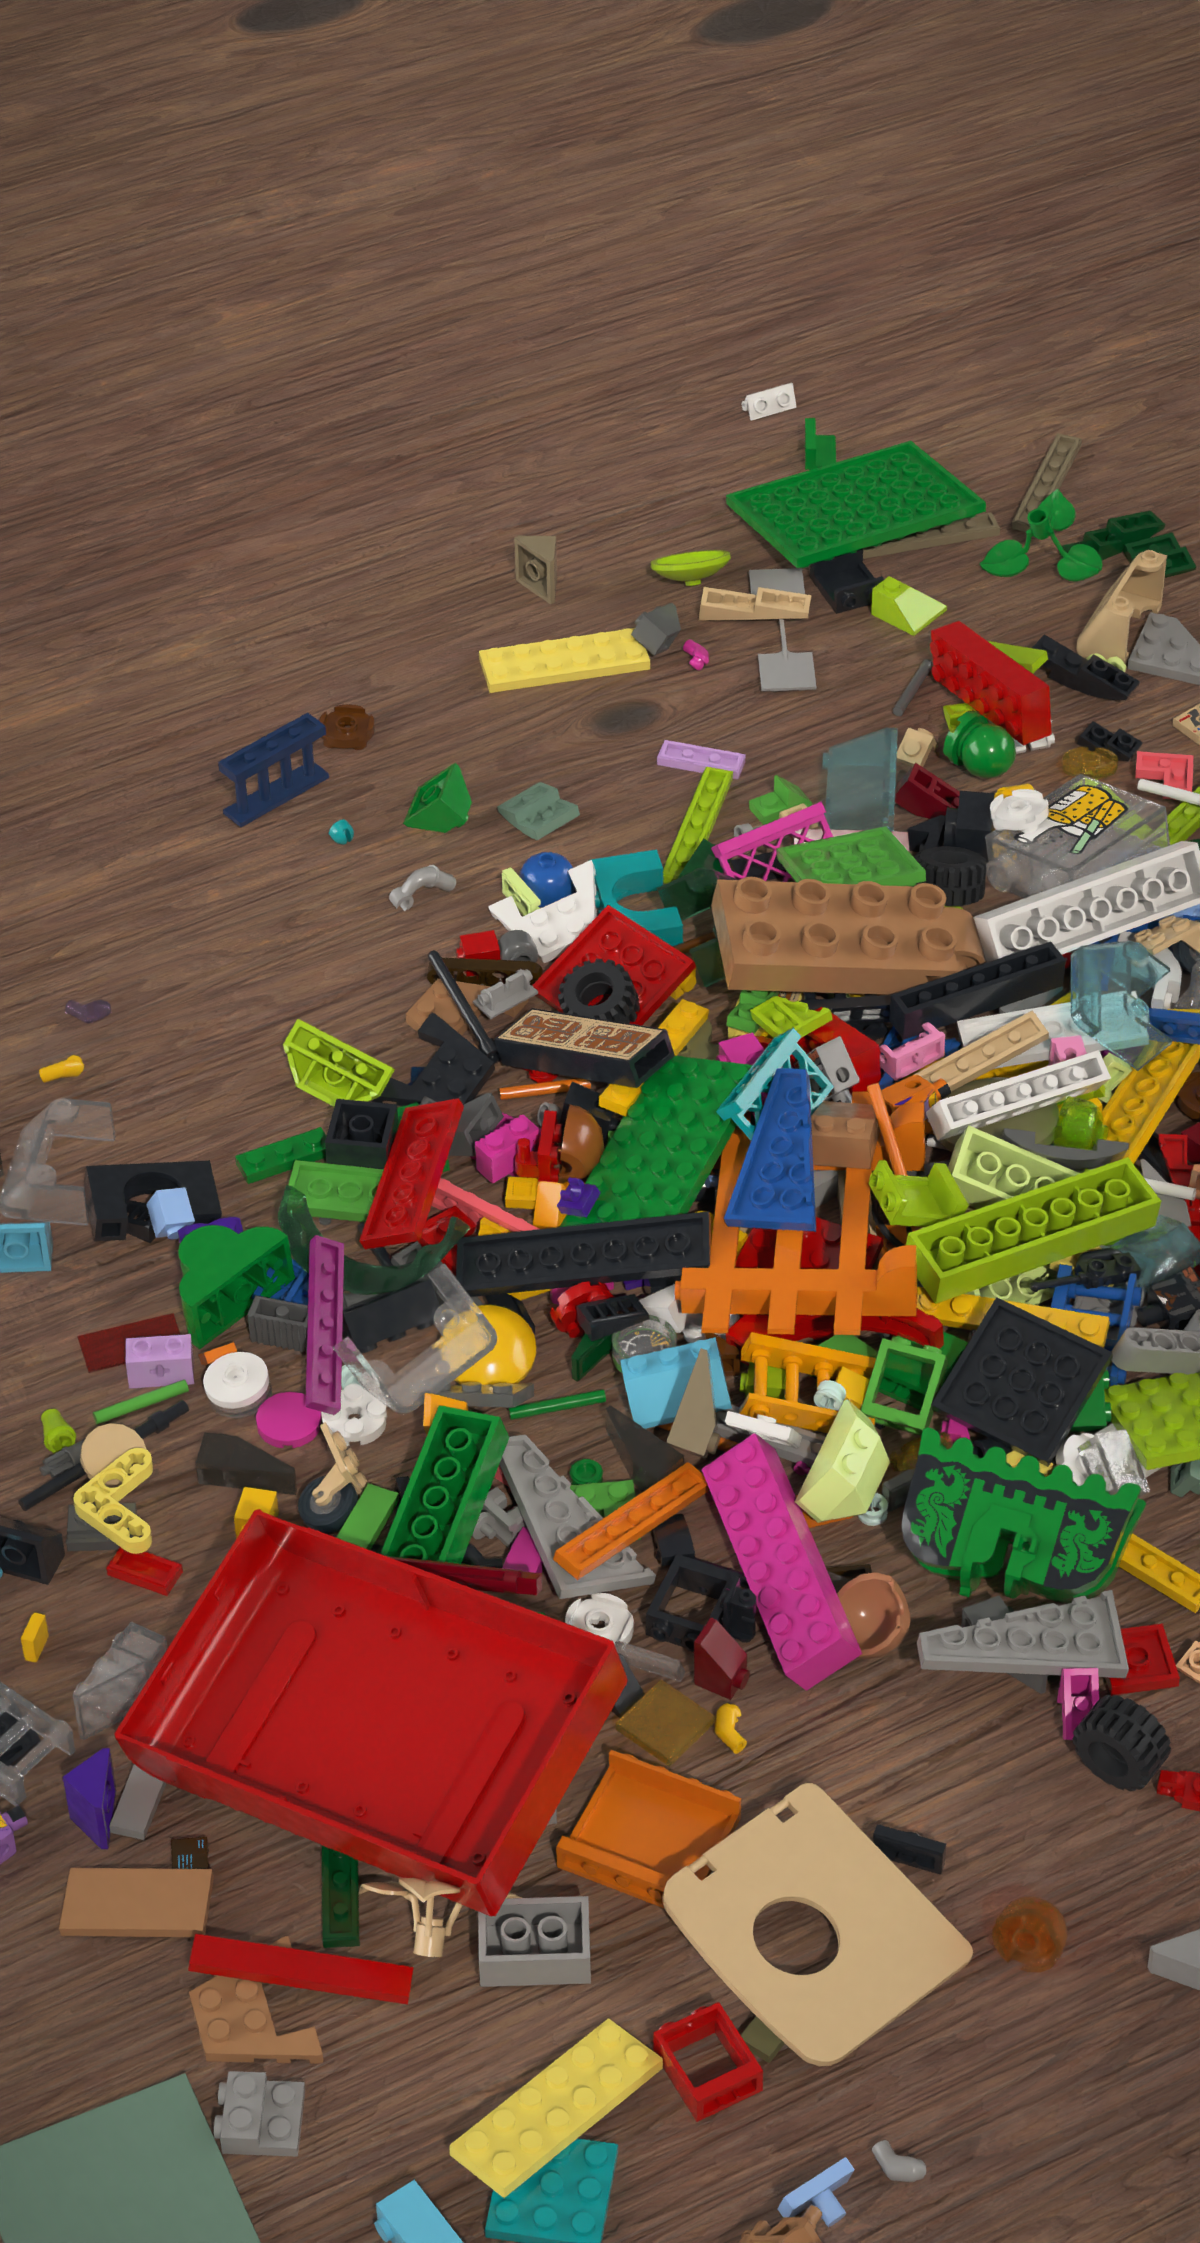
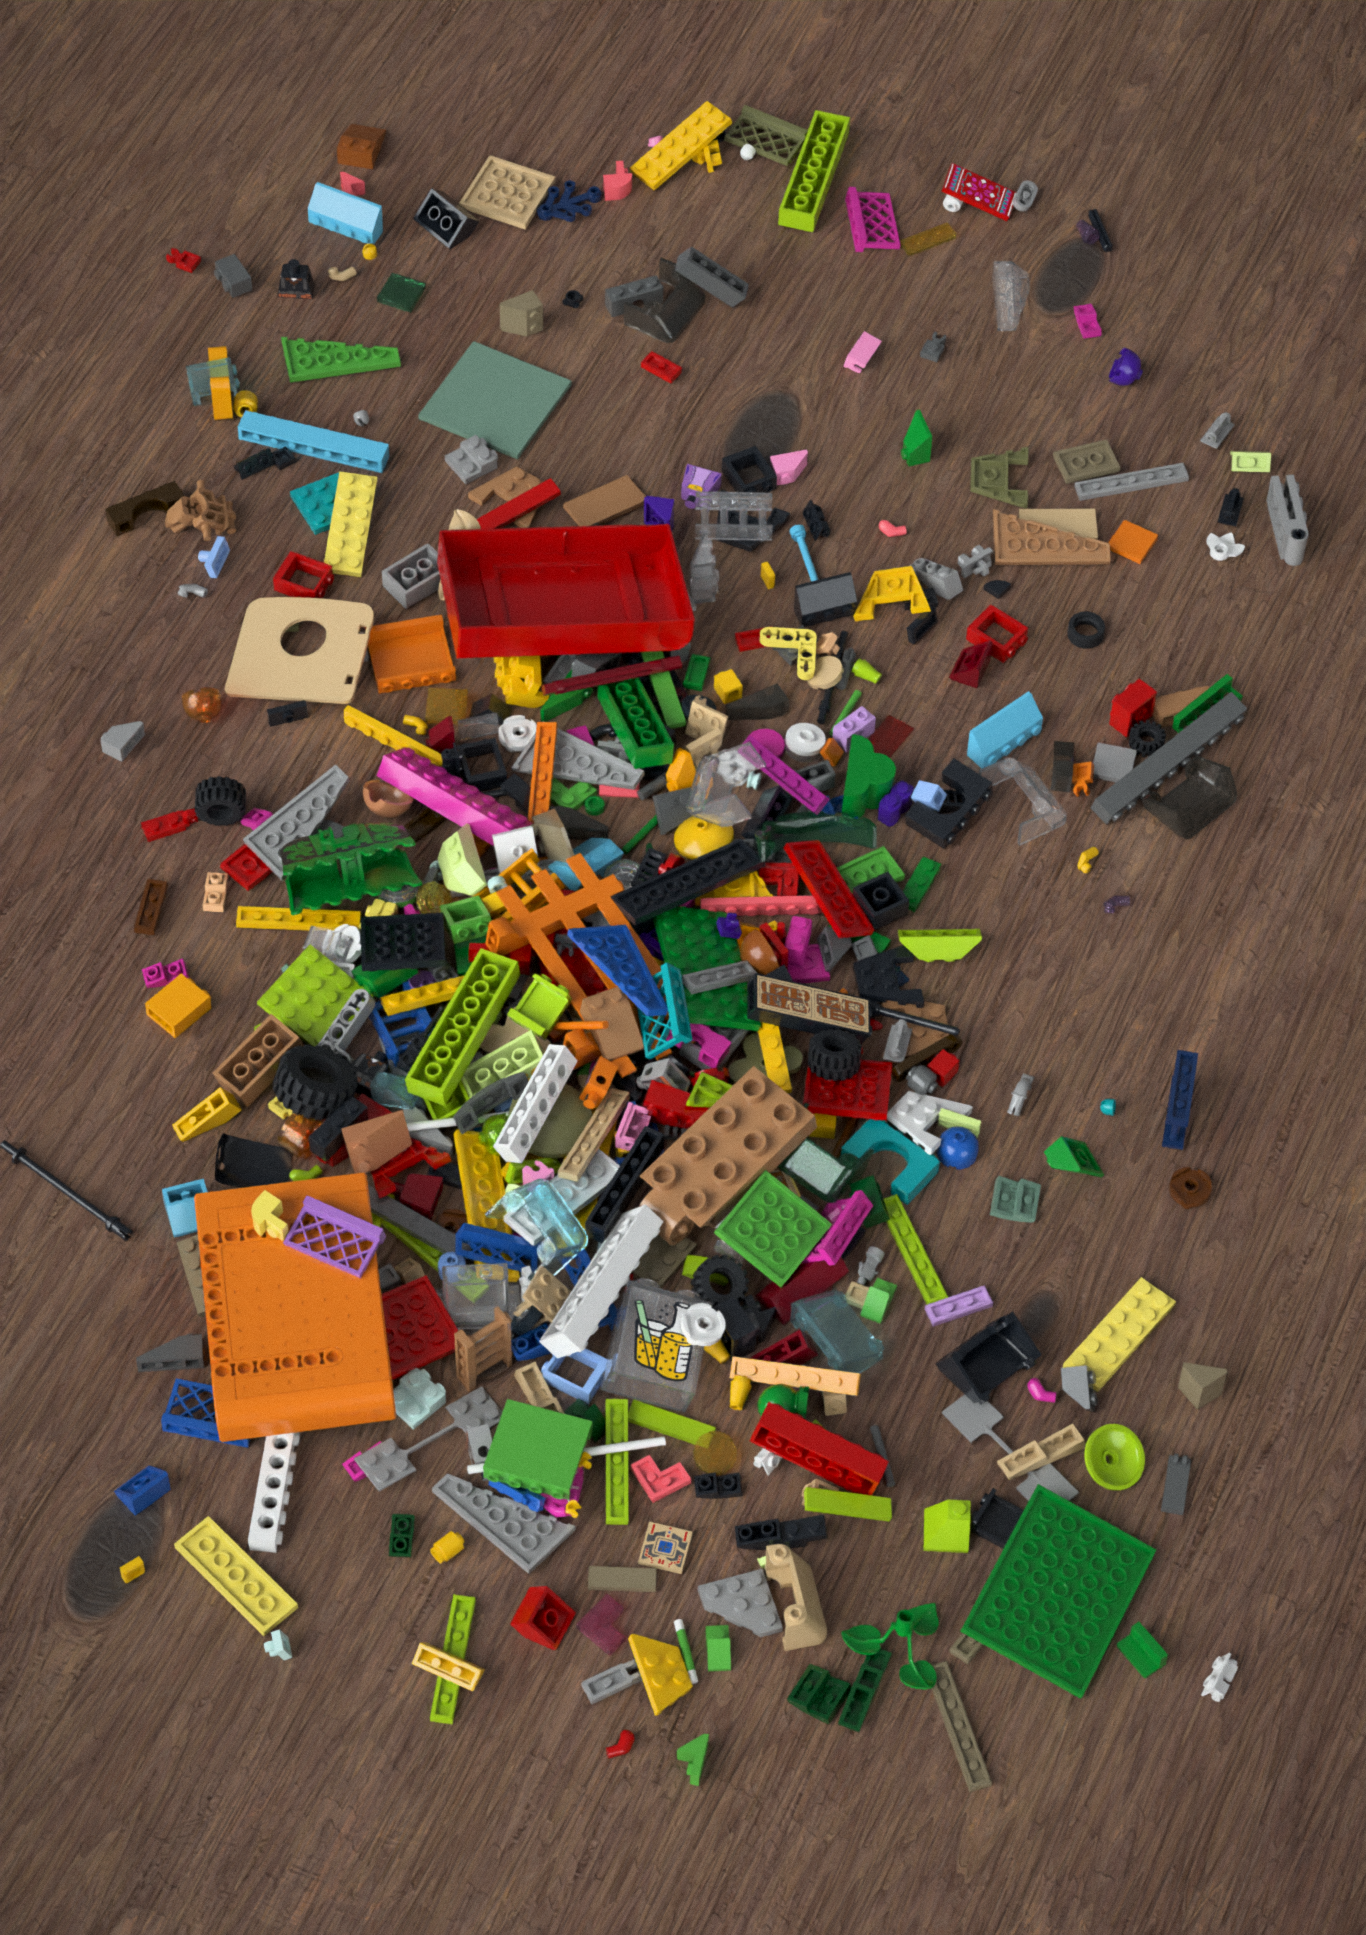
camera: 140 degrees right, 10 degrees up
(66, 1484) = (826, 644): none -> light nougat tile
(380, 1432) = (704, 745): none -> tan plate
(647, 535) = (1176, 1484): none -> dark grey hinge
(662, 1114) = (718, 977): none -> light grey tile
(729, 699) = (989, 1357): none -> black windscreen
(780, 1707) = (388, 735): none -> yellow plate
(932, 750) = (796, 1375): none -> light orange tile

